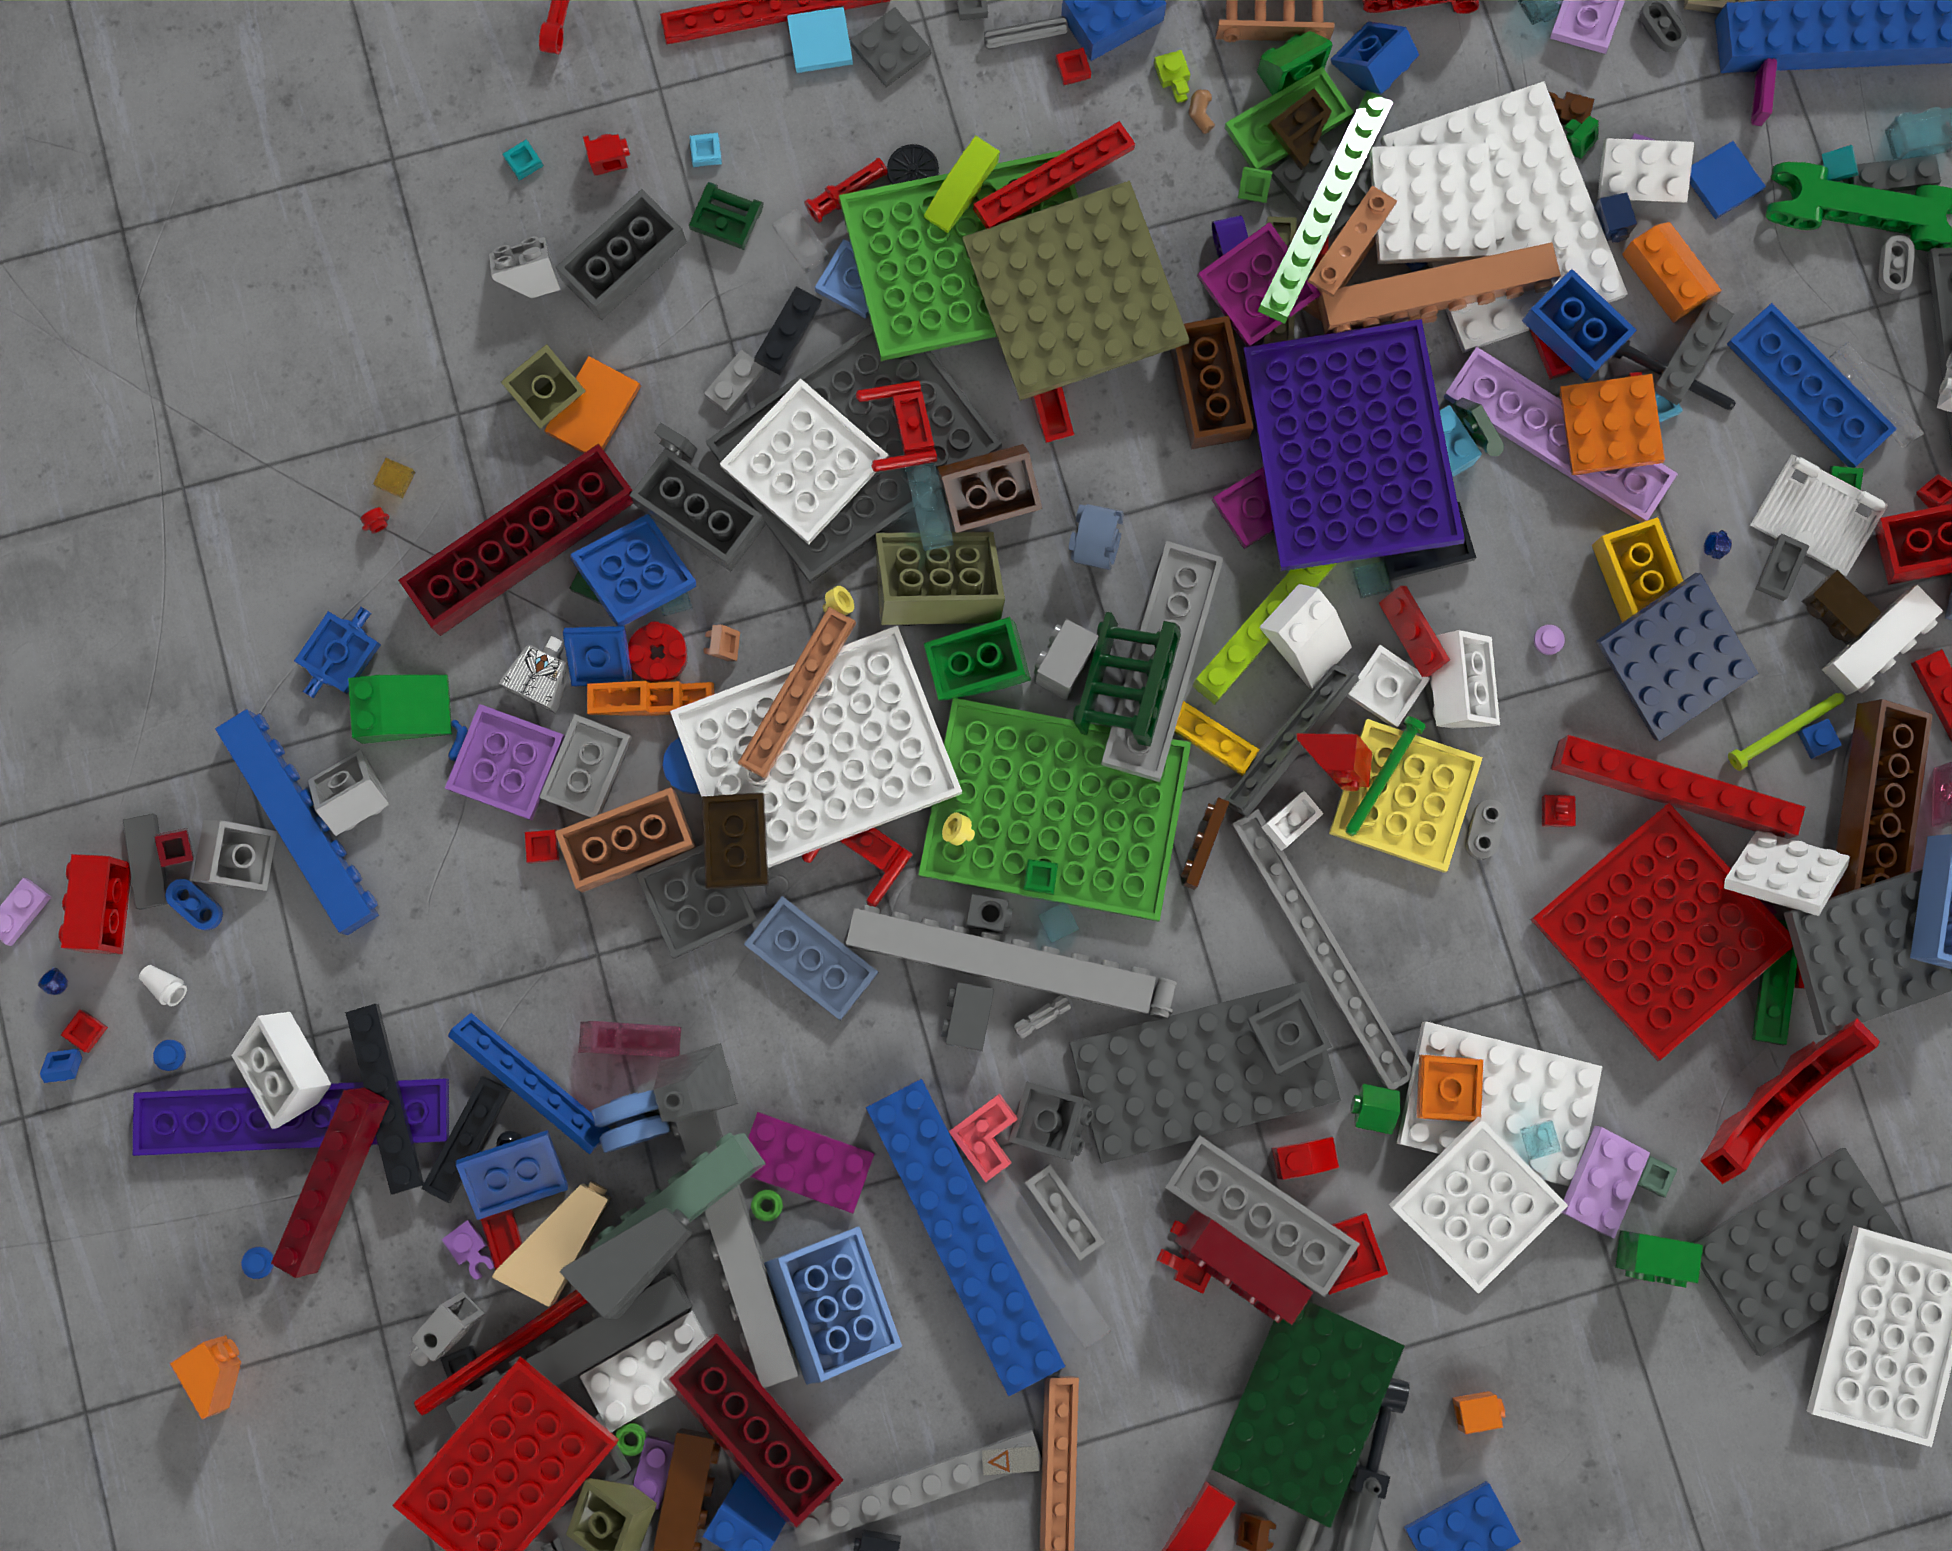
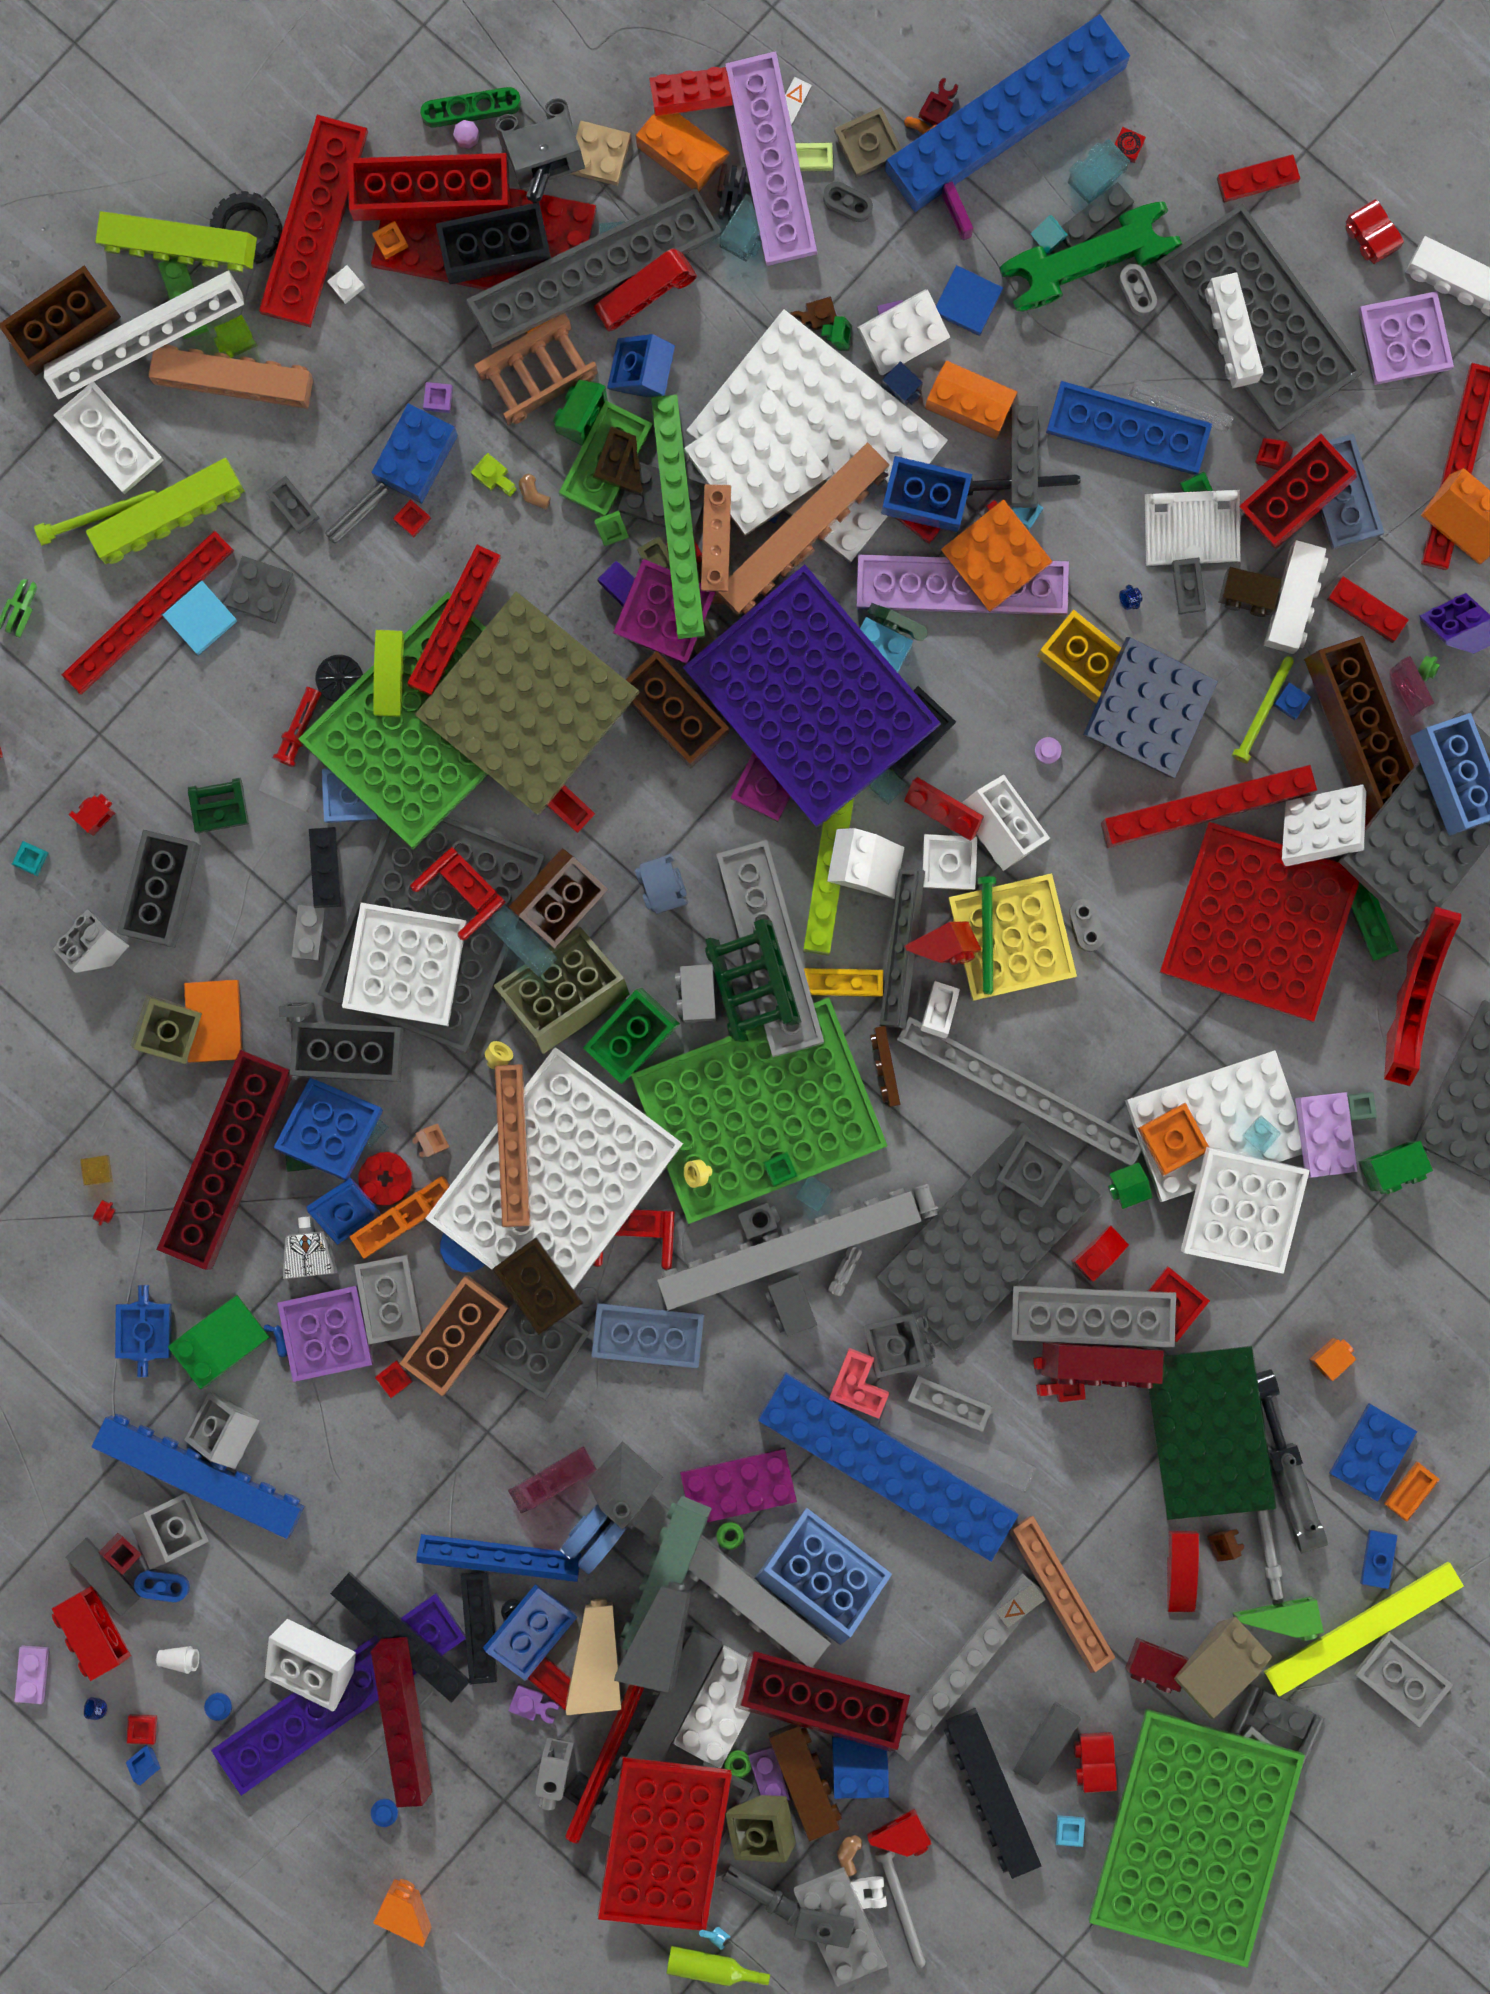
camera: 30 degrees left, 5 degrees up
(705, 149) = (167, 762): medium azure tile -> none
(1559, 810) = (1132, 877): red tile -> none

